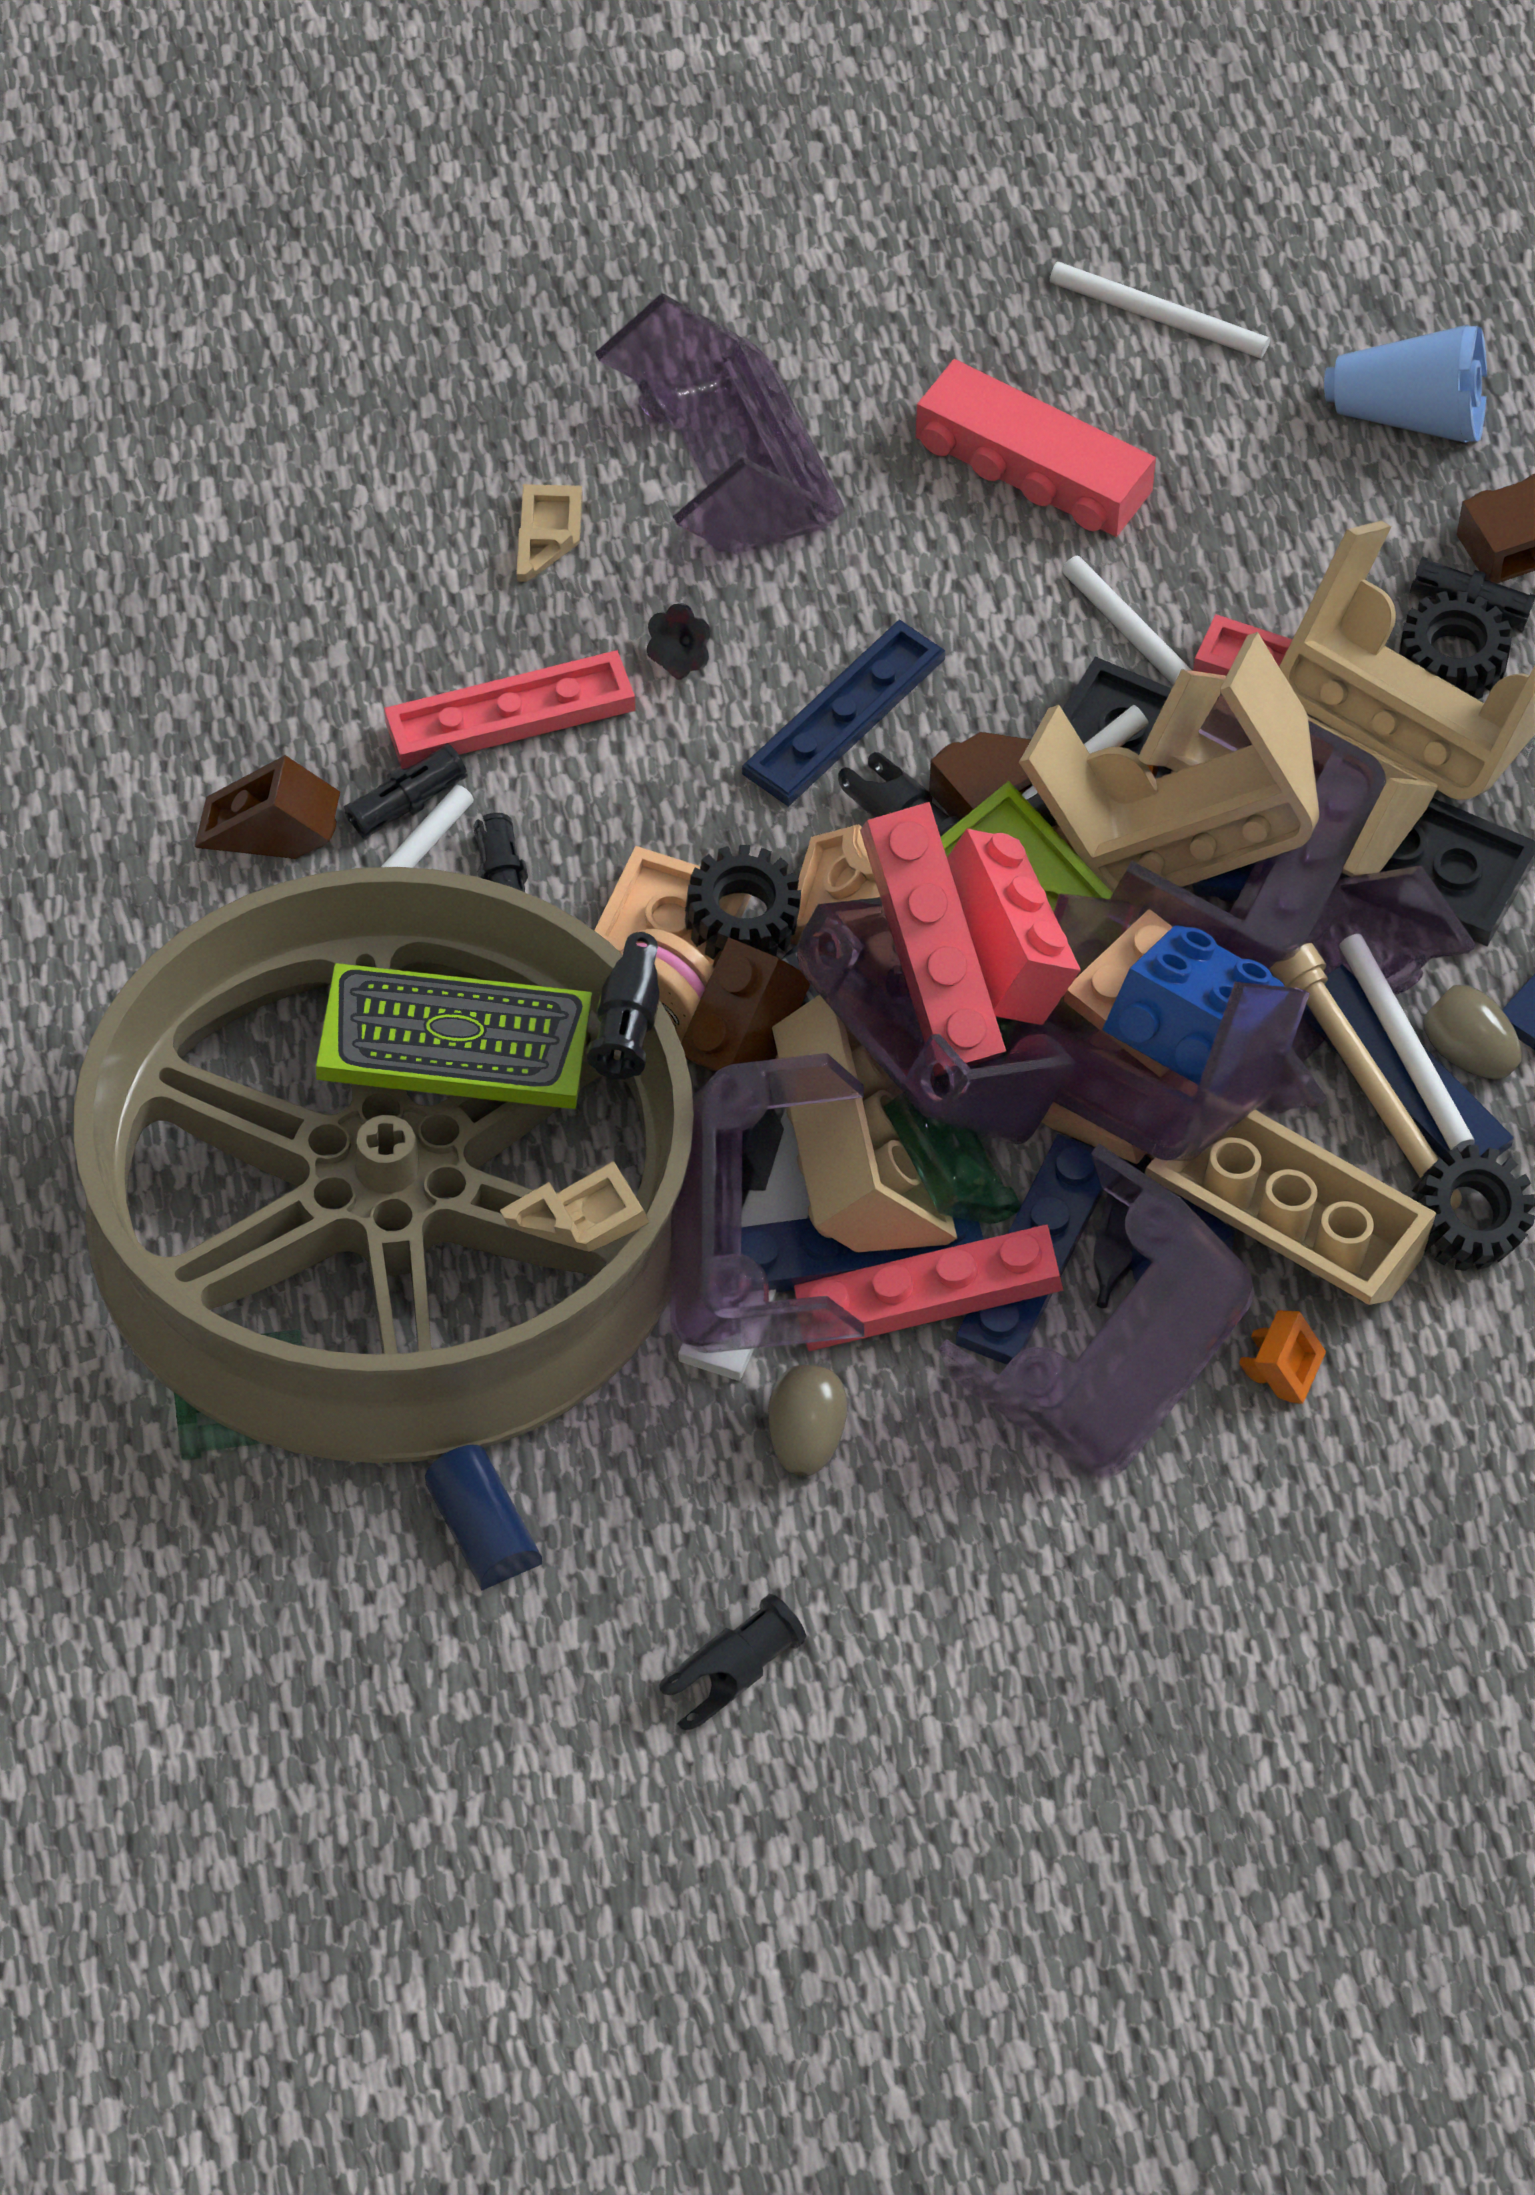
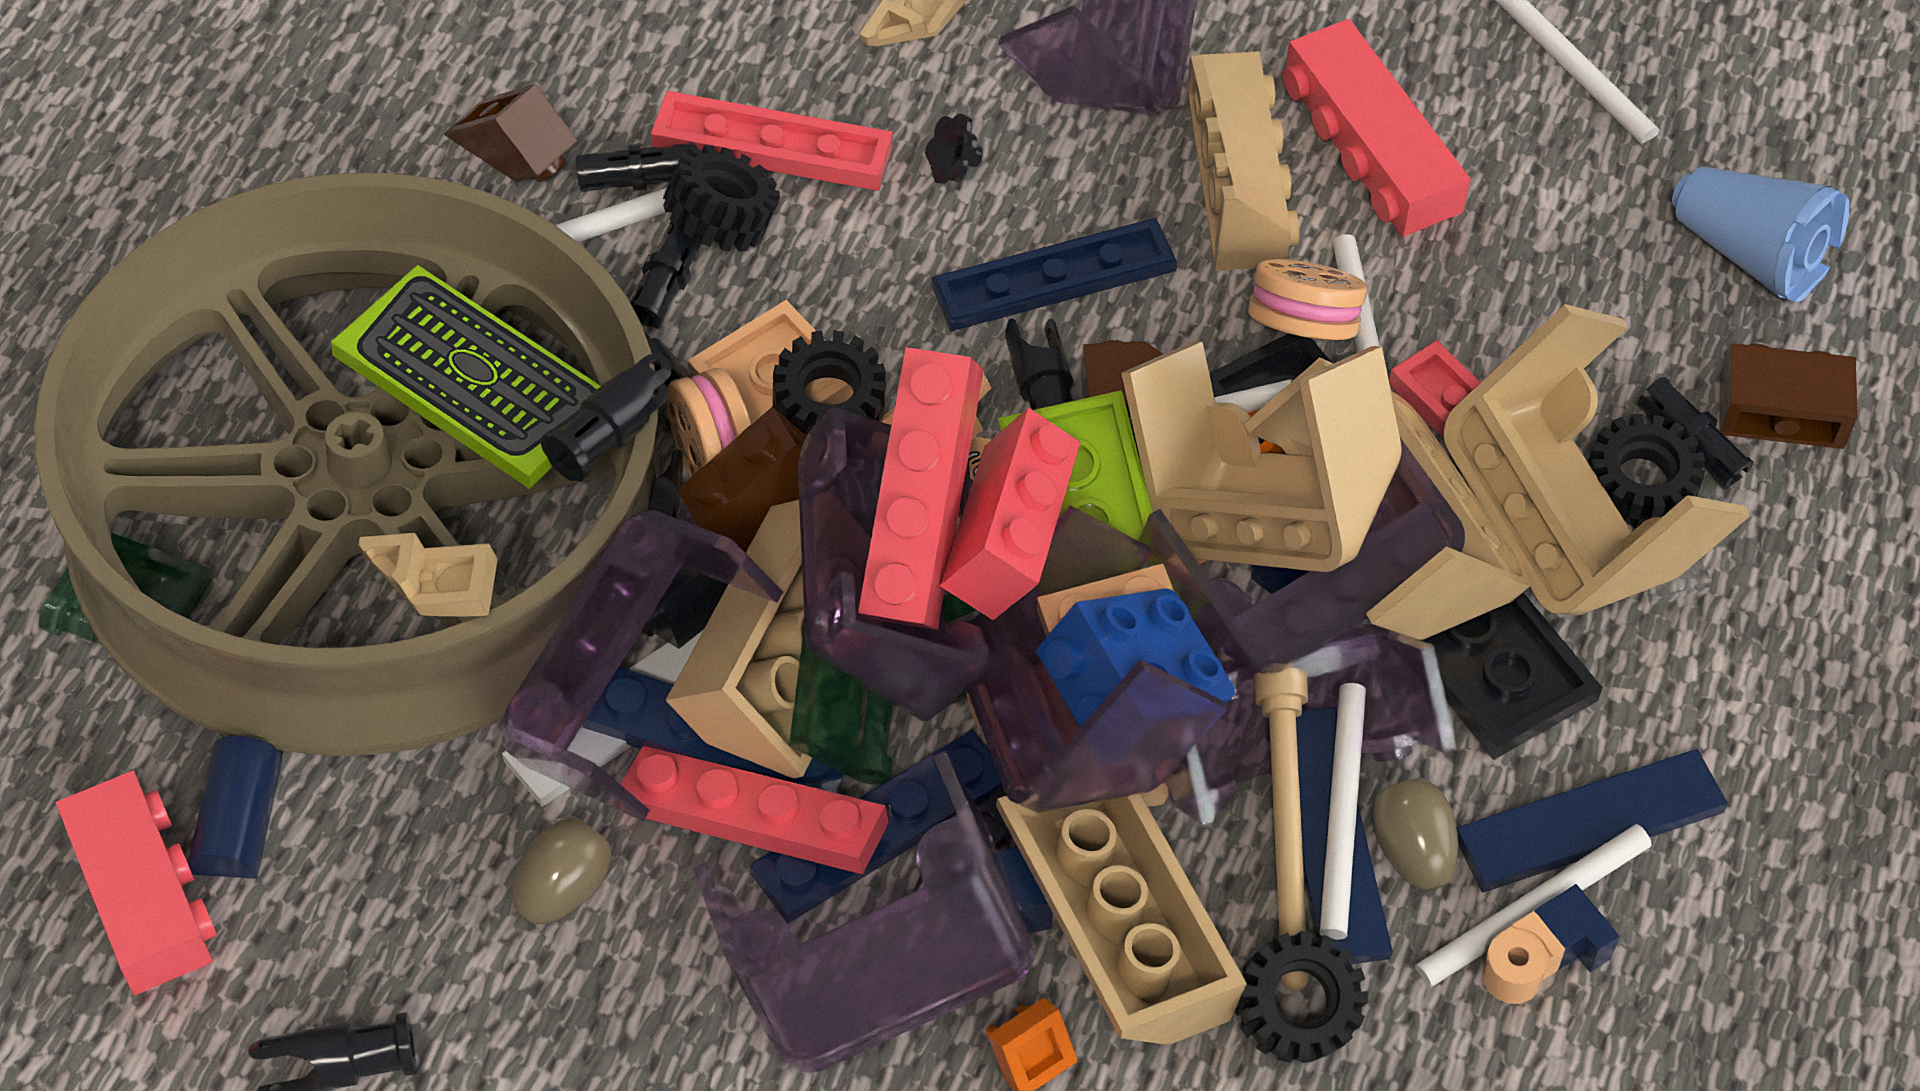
camera: 30 degrees right, 0 degrees up
(451, 1614) = (137, 881): none -> coral brick
(513, 782) = (721, 198): none -> black tyre
(939, 533) = (1239, 160): none -> tan wedge
(1088, 629) = (1307, 299): none -> light nougat head

